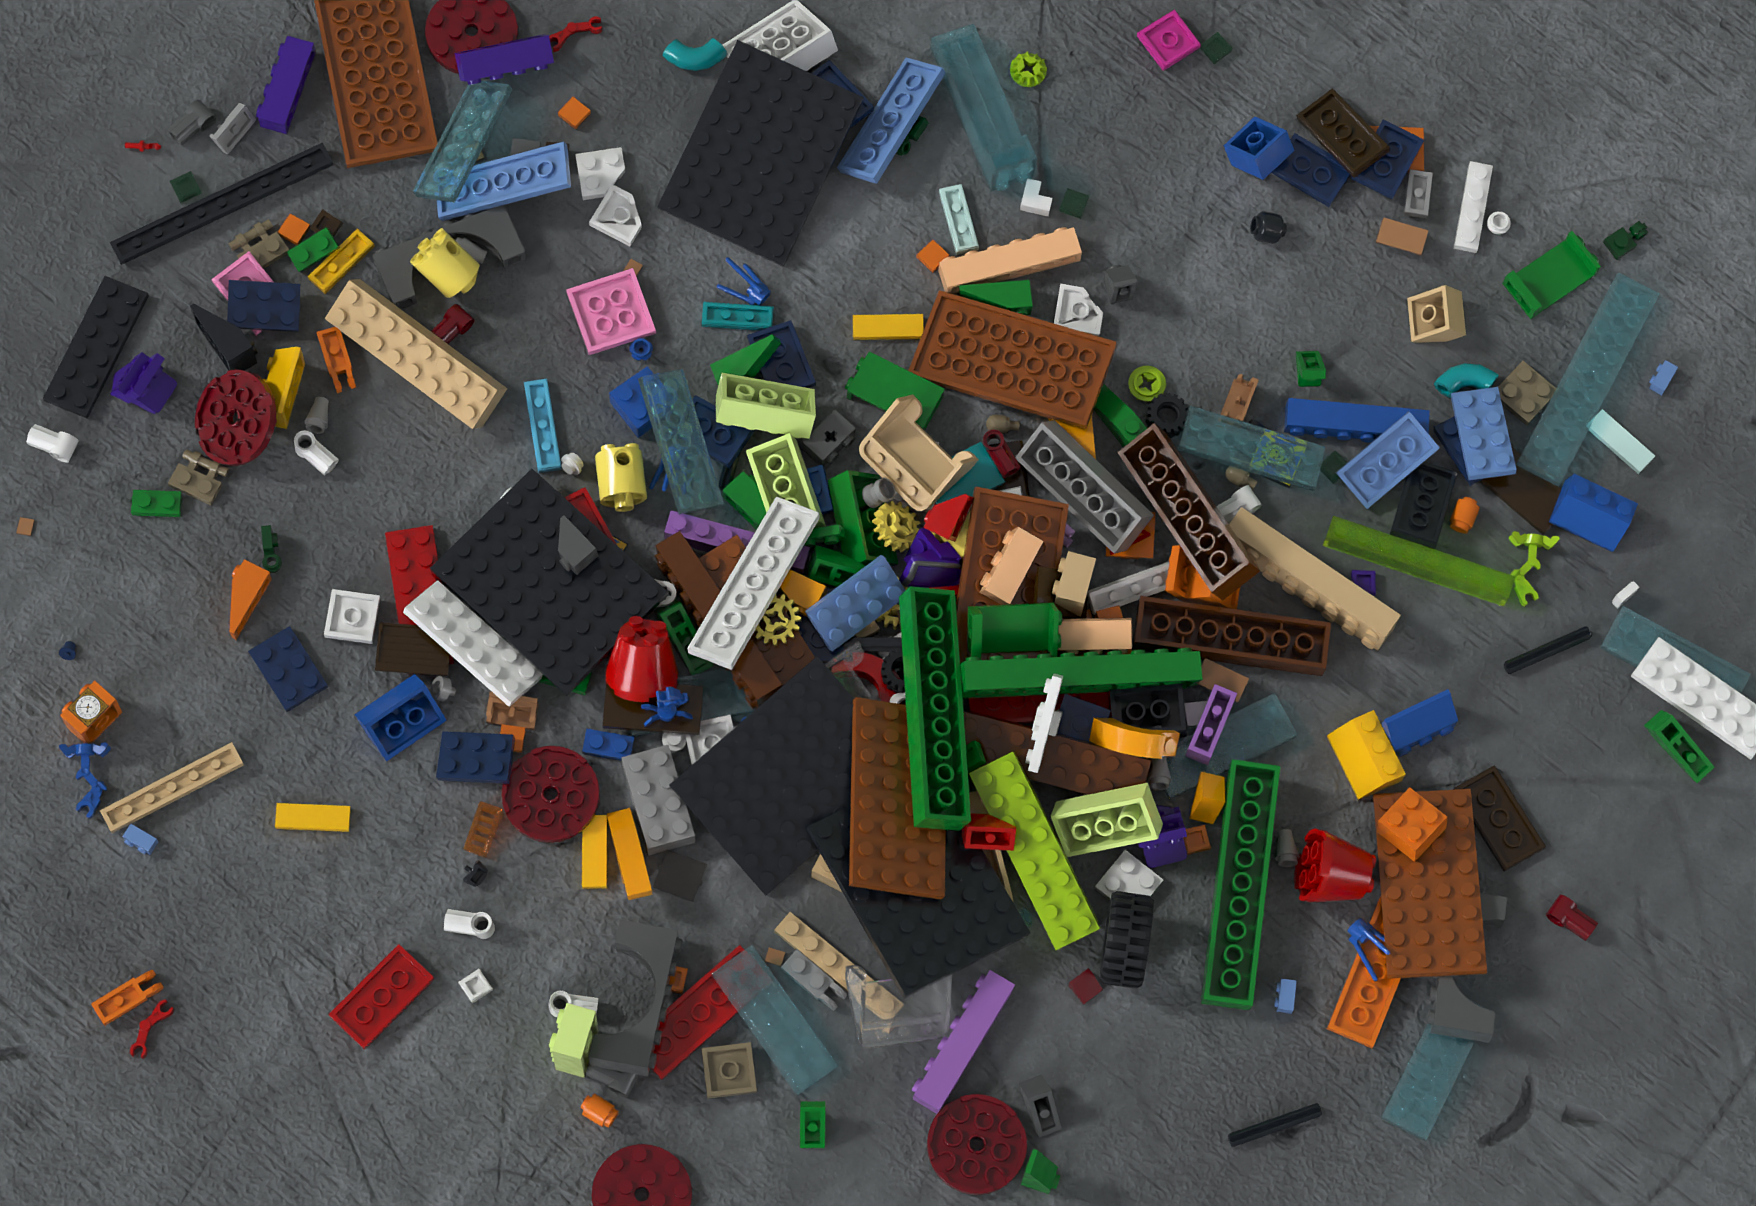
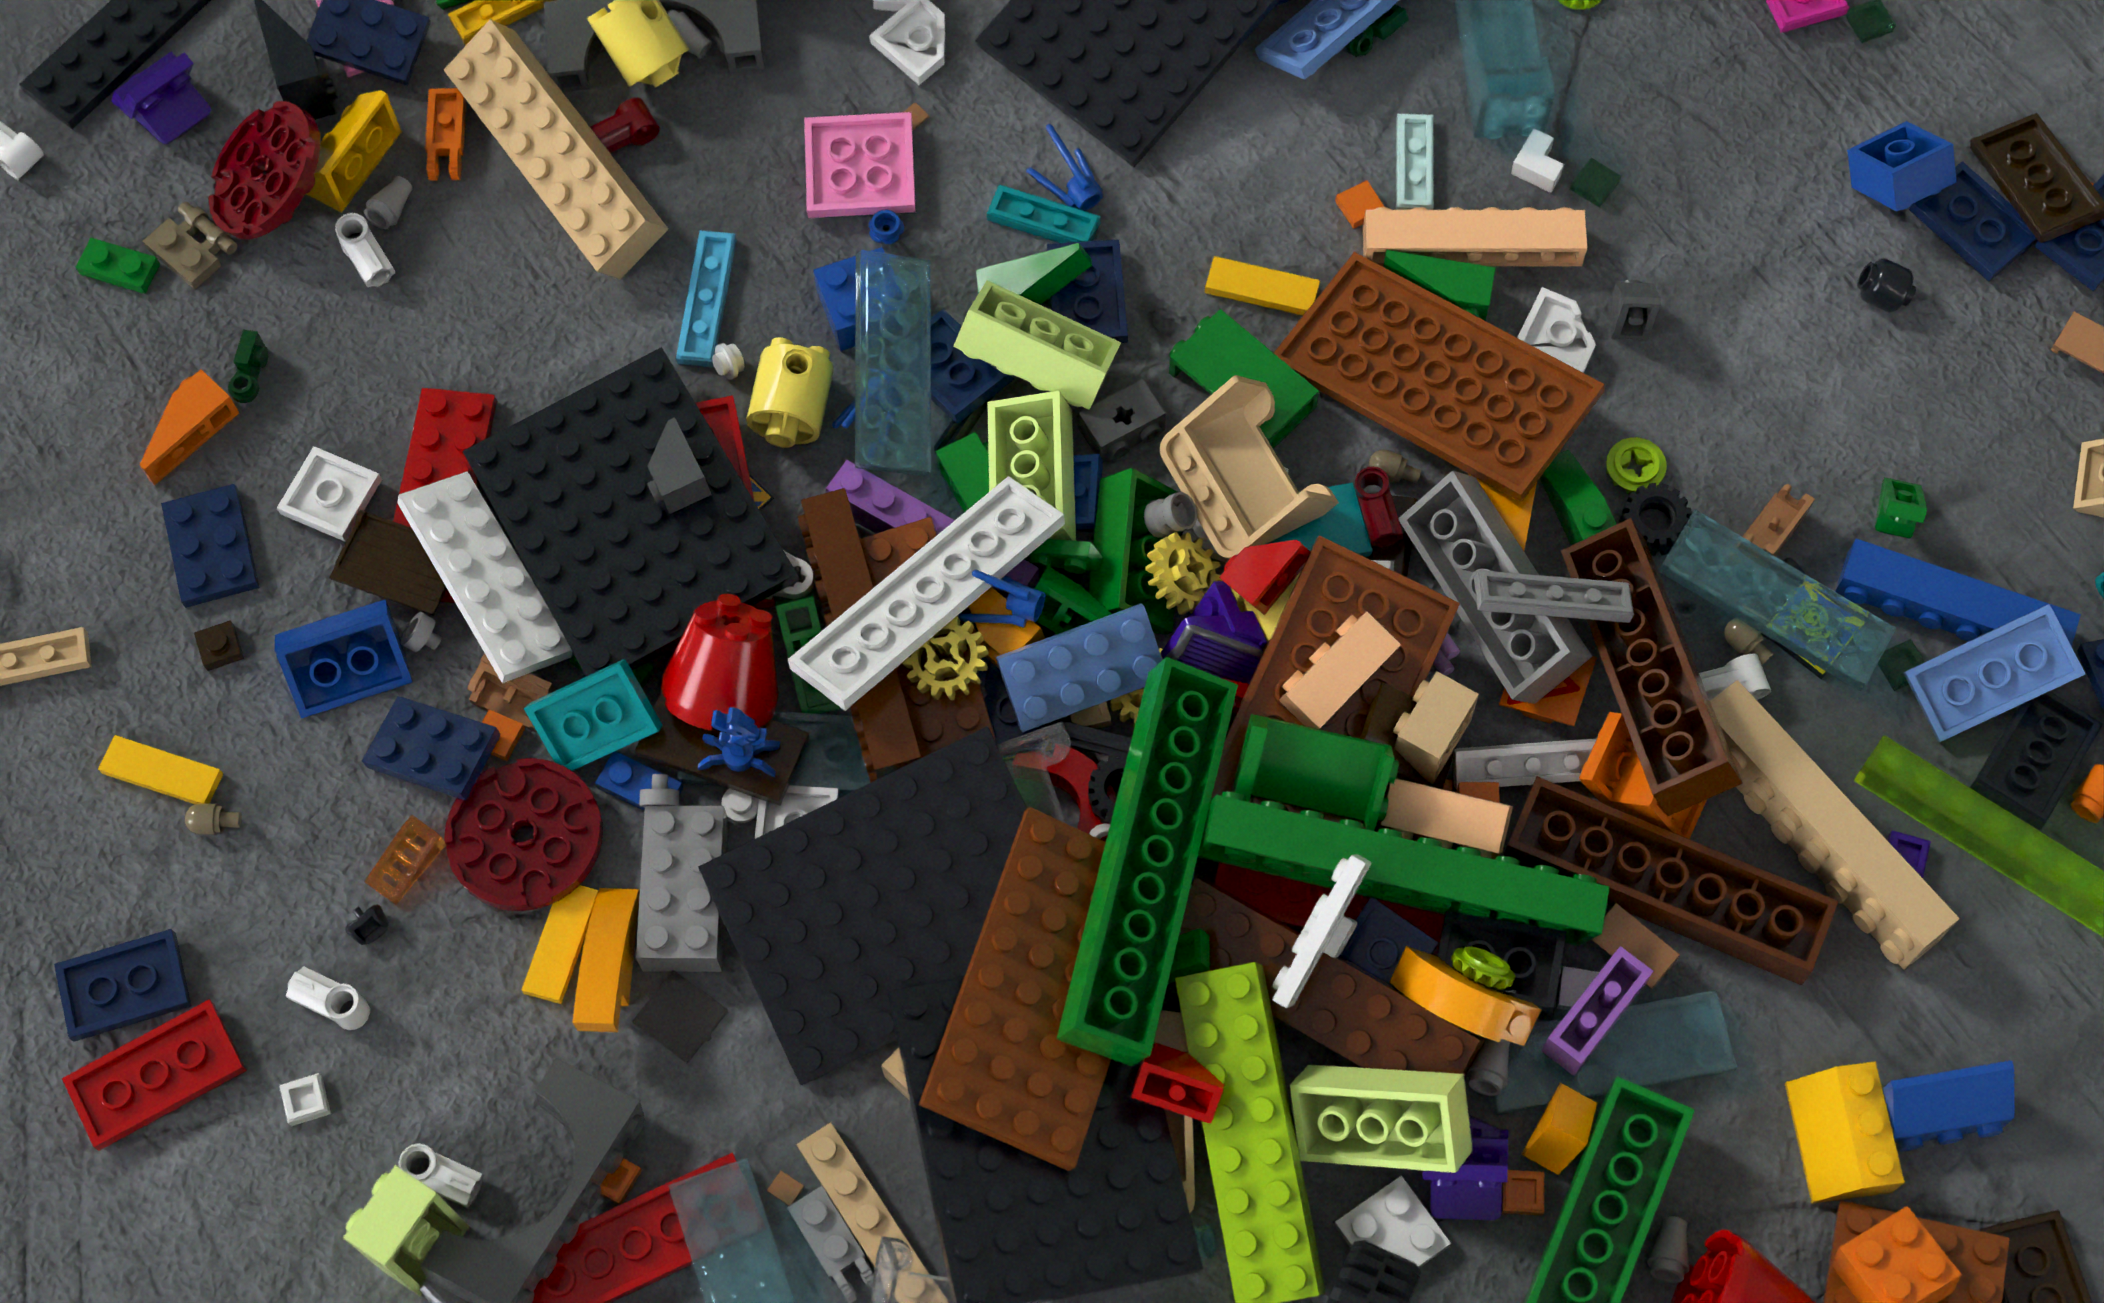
camera: 25 degrees right, 5 degrees down
(318, 730) = (219, 645): none -> dark brown plate
(341, 950) = (122, 985): none -> dark blue plate
(355, 837) = (210, 819): none -> dark tan cylinder
(572, 712) = (593, 716): none -> teal plate
(627, 748) = (659, 793): none -> light grey tile
(812, 574) = (1023, 601): none -> blue plant
(1122, 486) = (1553, 596): none -> light grey tile
(1140, 717) = (1483, 967): none -> lime gear

